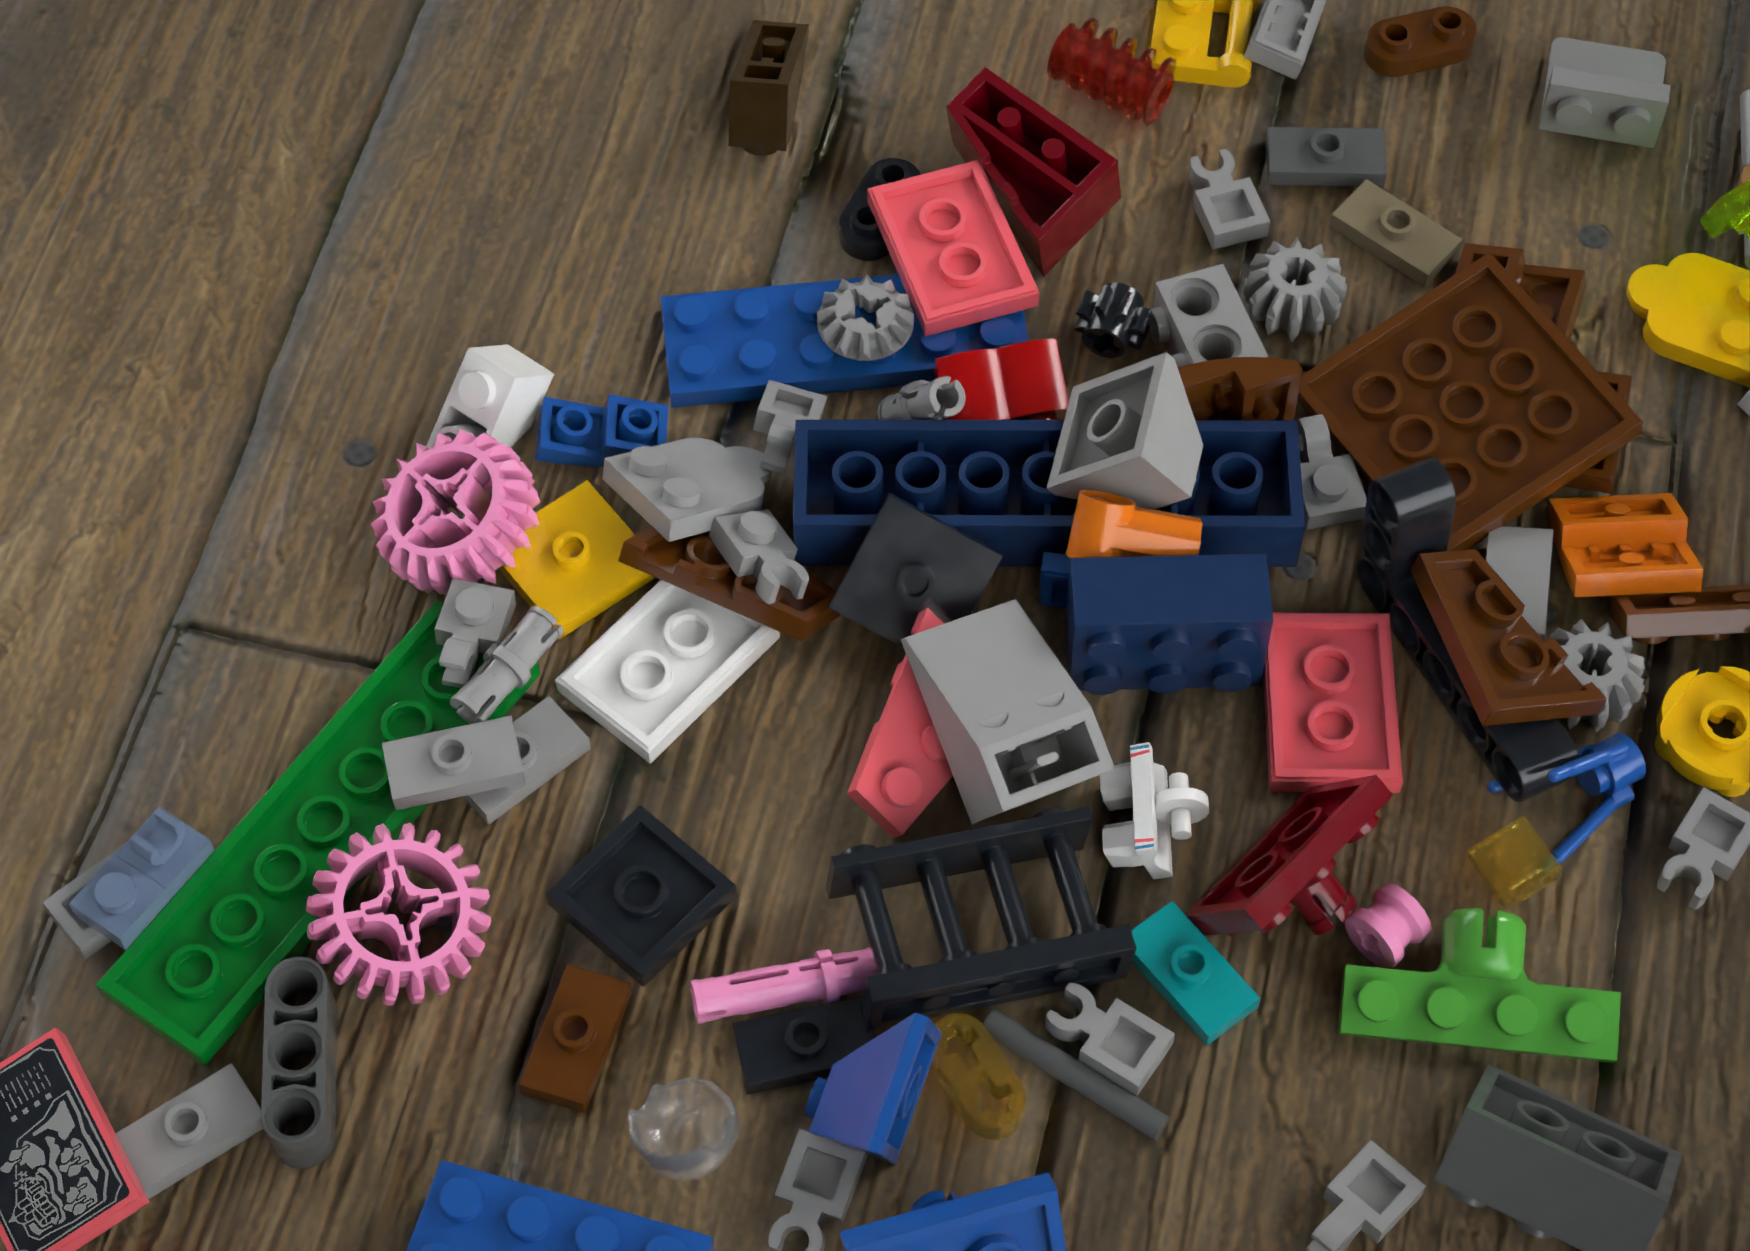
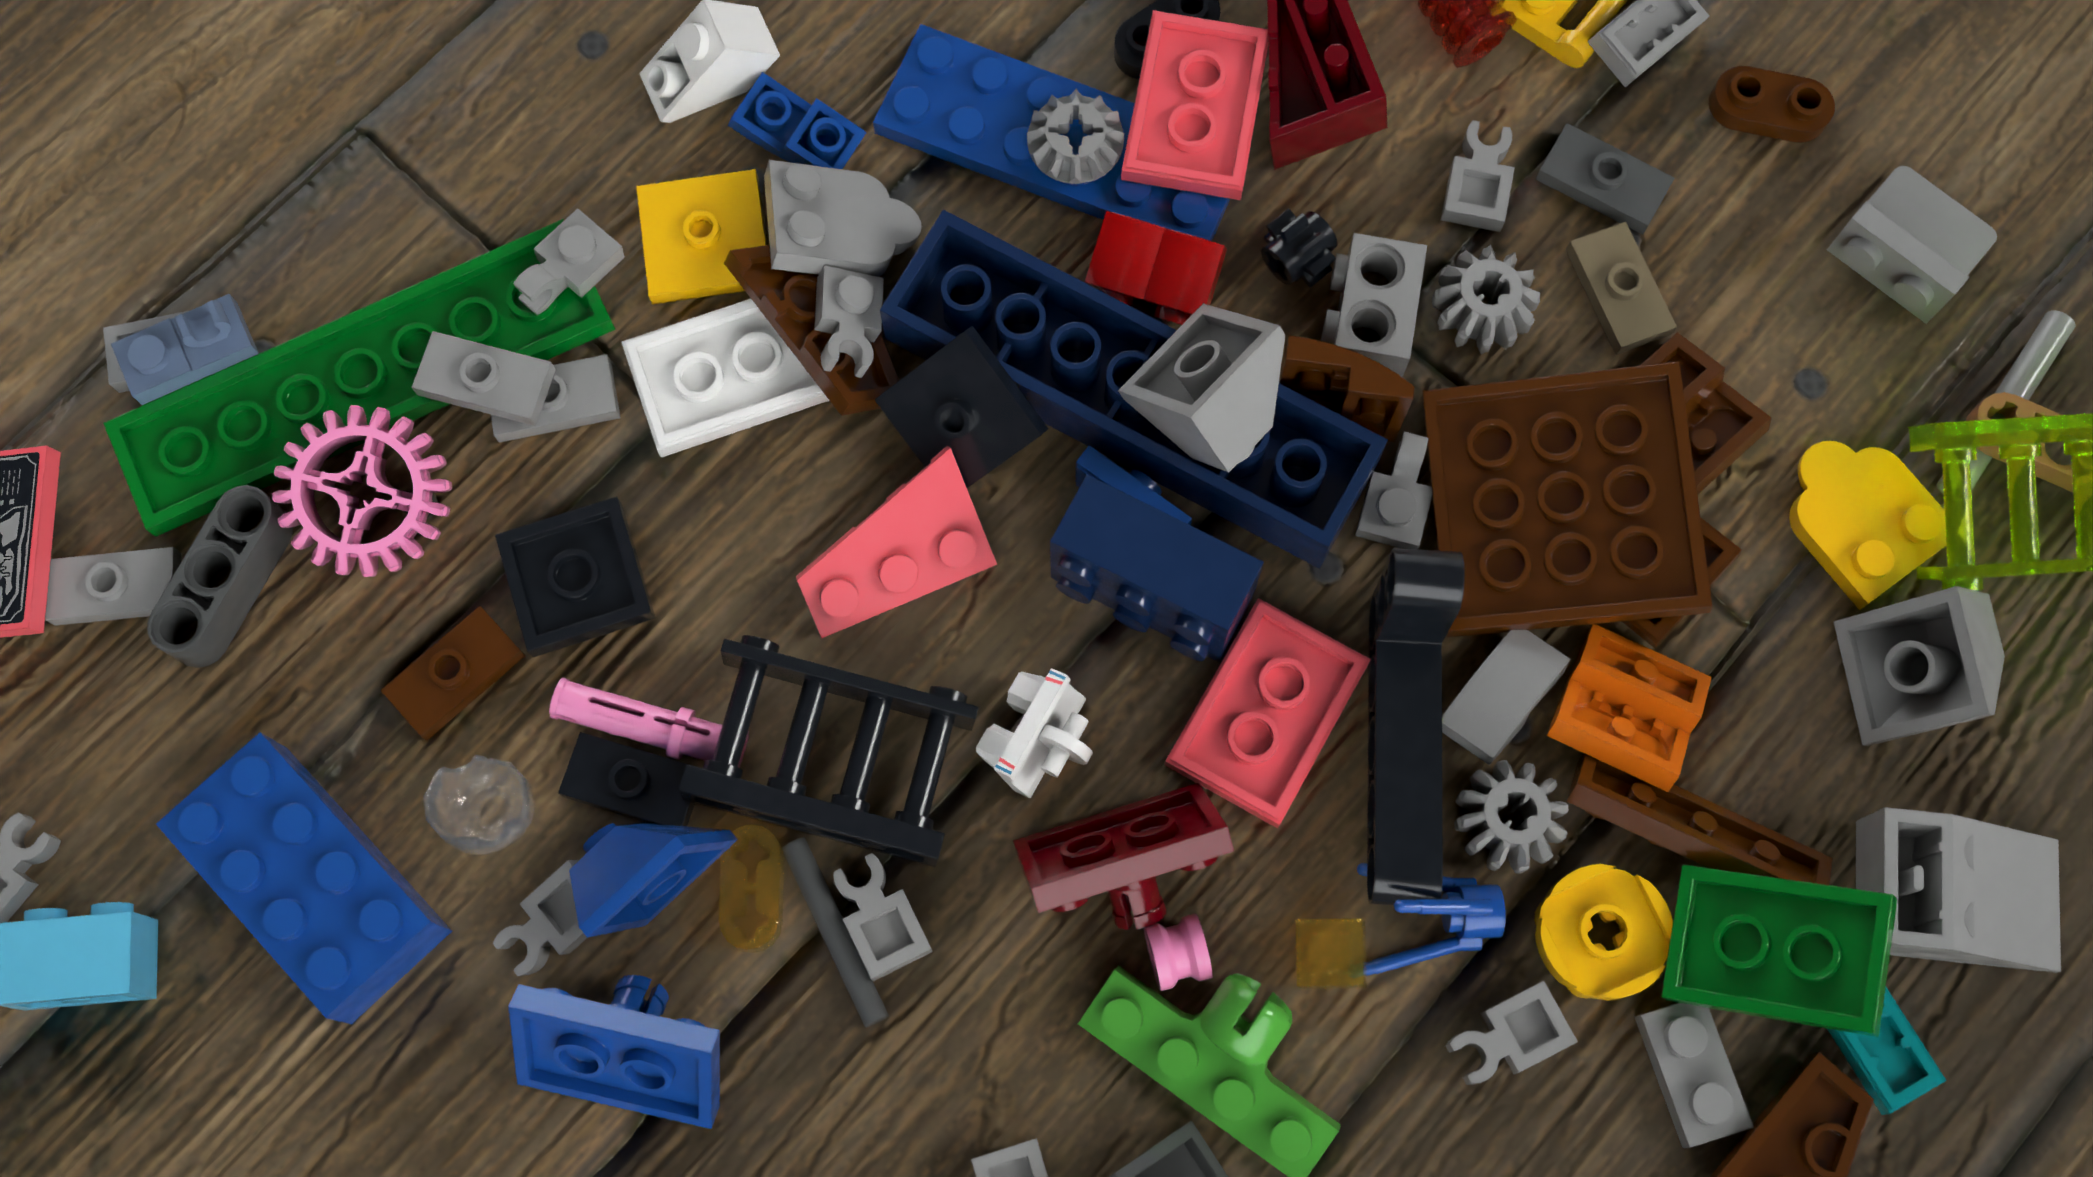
camera: 30 degrees right, 15 degrees up
(475, 480) = (619, 146): bright pink gear -> none
(507, 666) = (574, 313): light grey pin -> none
(777, 417) = (958, 189): light grey plate -> none
(924, 401) = (1074, 242): light grey pin -> none
(1005, 710) = (958, 579): light grey slope -> none
(1118, 528) = (1148, 467): orange piece -> none
(1191, 974) = (986, 895): teal plate -> none
(1494, 649) = (1425, 756): reddish brown wing -> none

